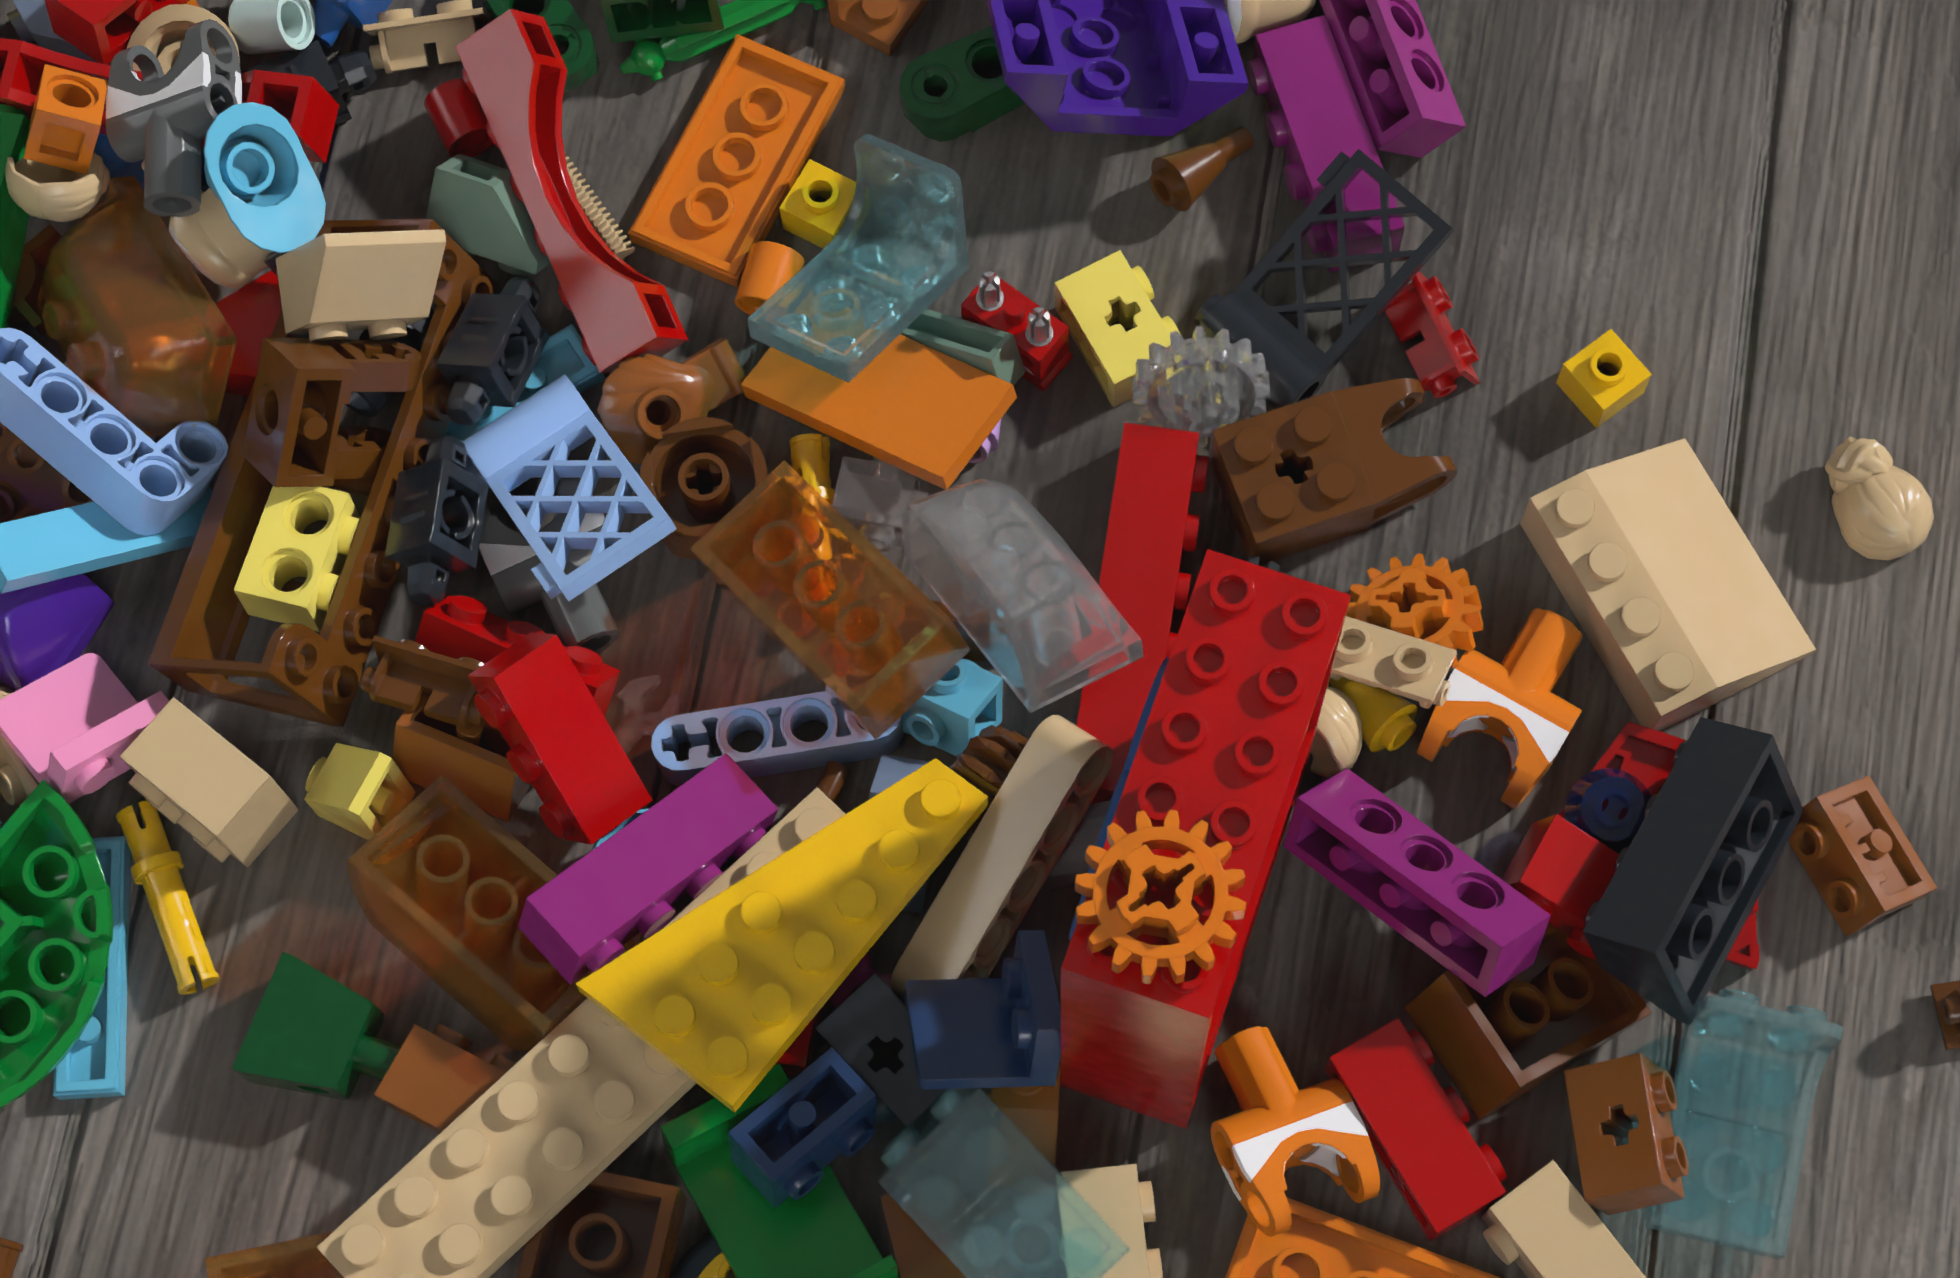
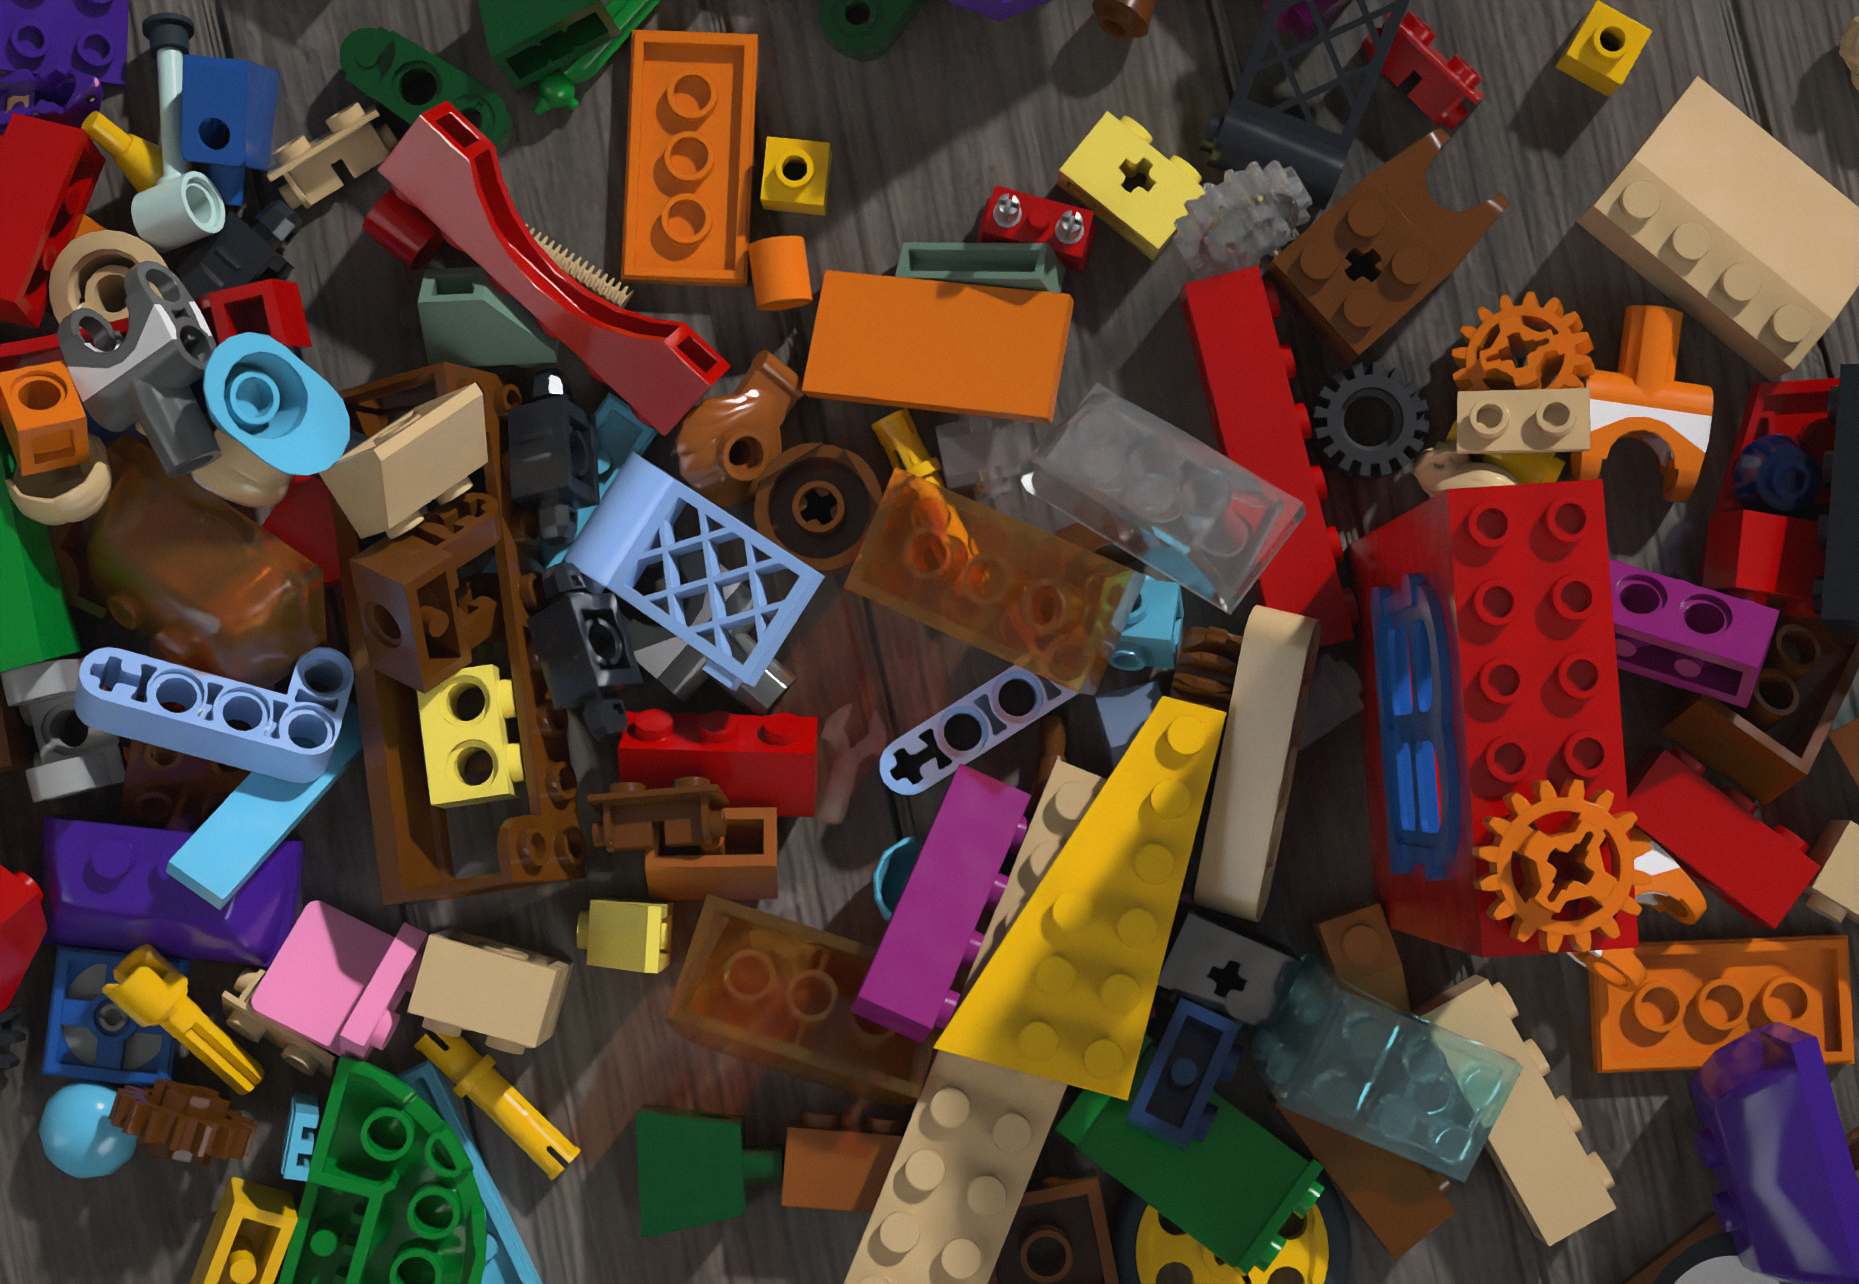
camera: 25 degrees left, 15 degrees up
(558, 739) = (804, 821): red brick -> none
(881, 268) = (881, 228): clear light blue bracket -> none
(989, 1027) = (1317, 921): dark blue bracket -> none

